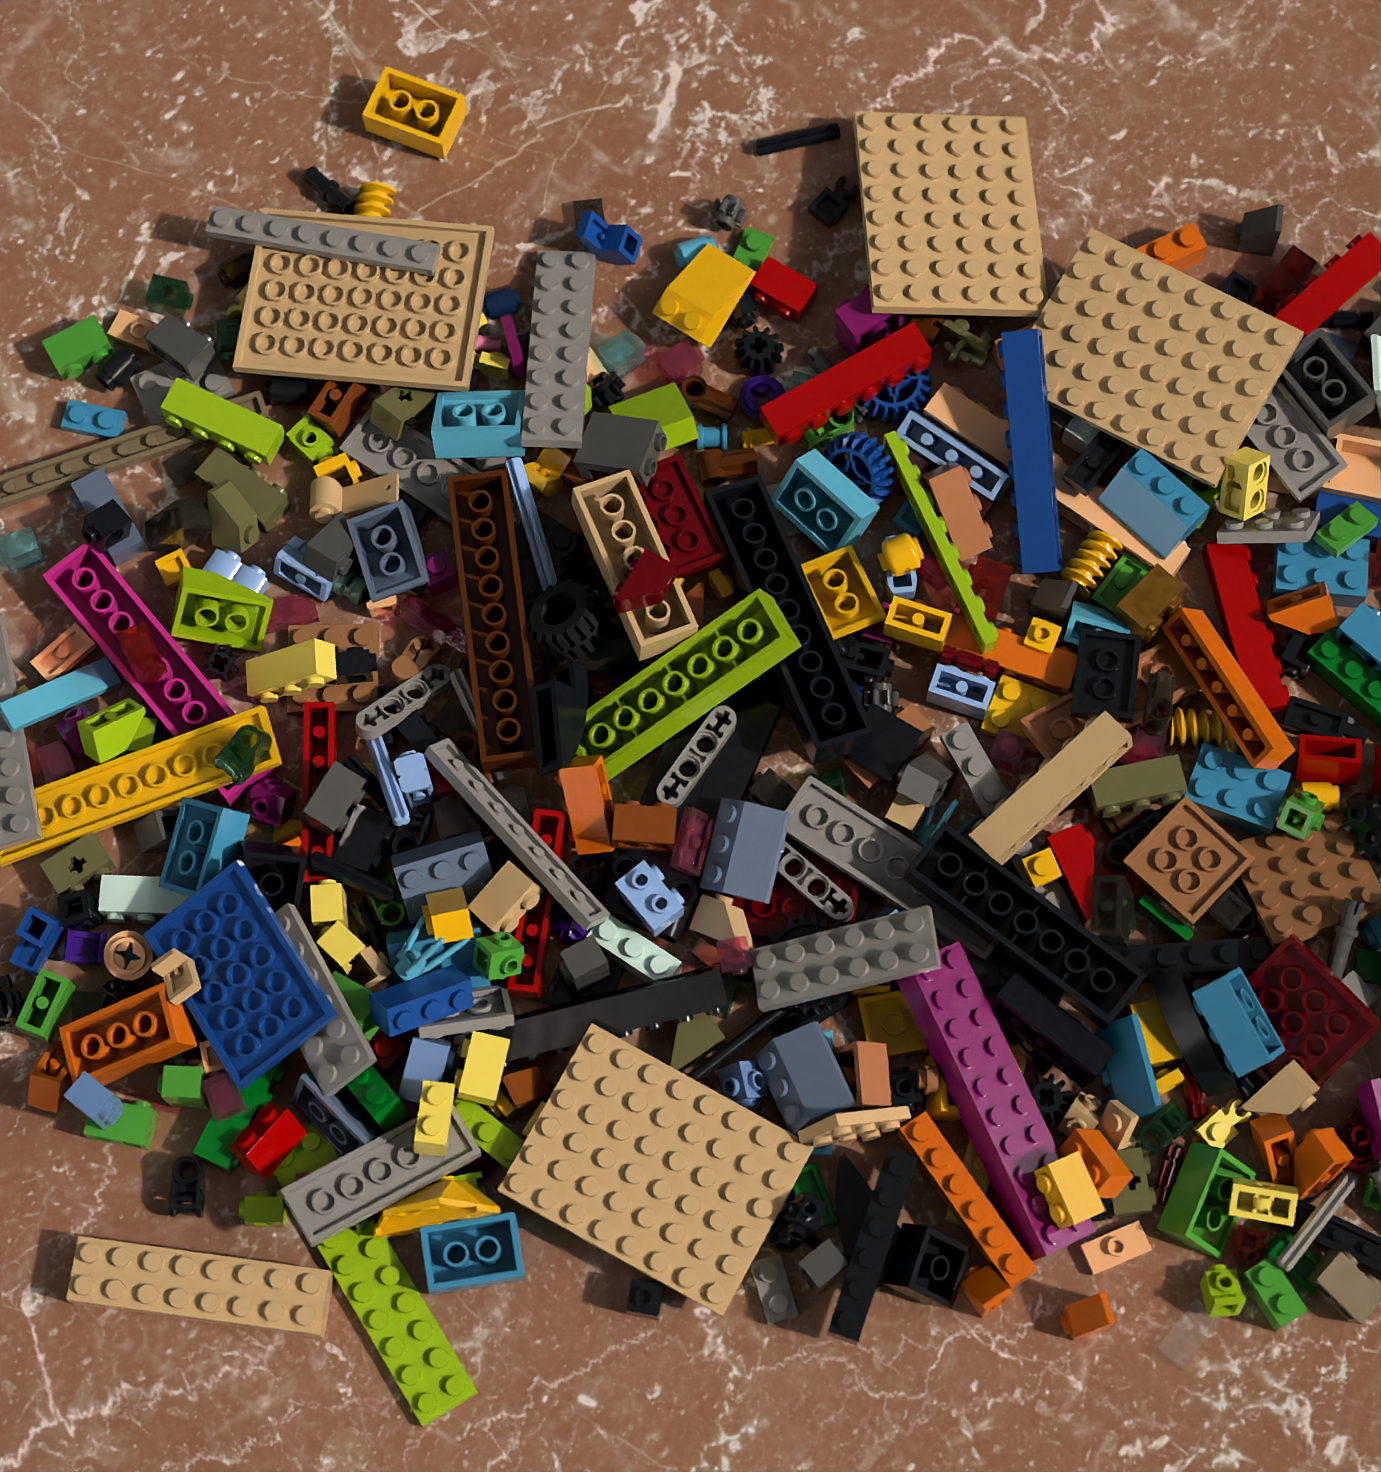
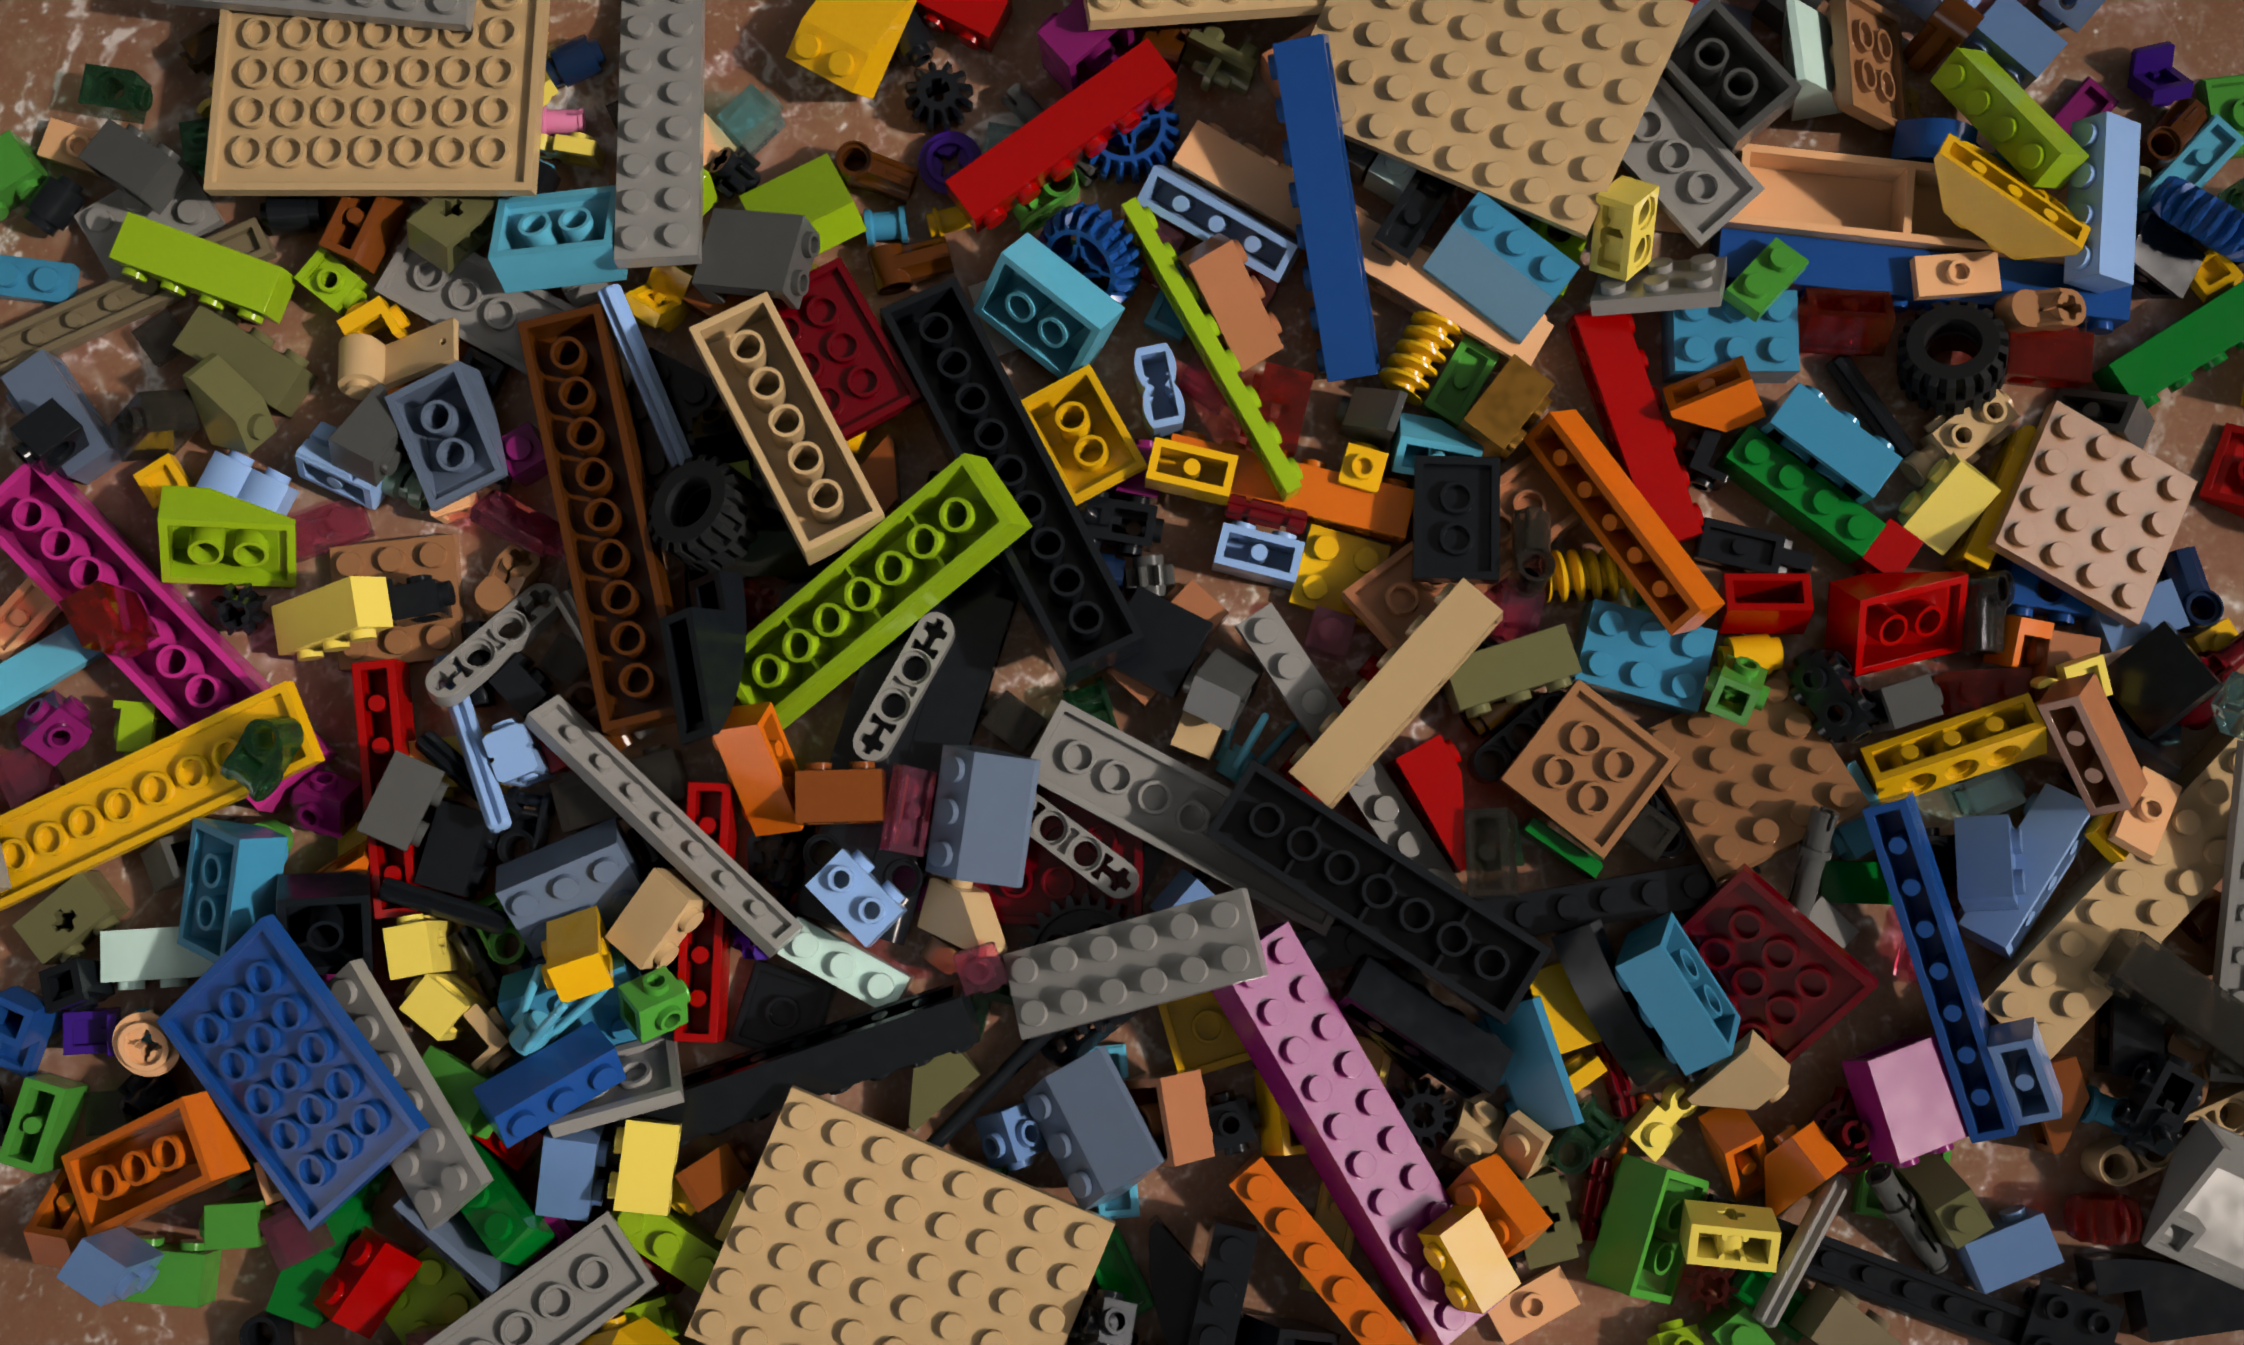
camera: 10 degrees left, 10 degrees up
(110, 730) = (87, 727): lime slope -> none
(178, 975) = (206, 1084): tan bracket -> none
(434, 1118) = (583, 1251): light yellow brick -> none
(513, 346) = (598, 121): magenta tile -> none
(583, 964) = (774, 996): dark grey brick -> none
(647, 583) = (804, 460): dark red slope -> none
(680, 362) = (833, 123): clear pink brick -> none
(722, 586) = (920, 436): yellow plate -> none
(850, 1125) = (1173, 1187): tan plate -> none
(900, 554) = (1159, 375): yellow head -> none
(927, 1079) = (1261, 1112): medium nougat plate -> none
(1041, 868) = (1391, 802): yellow plate -> none

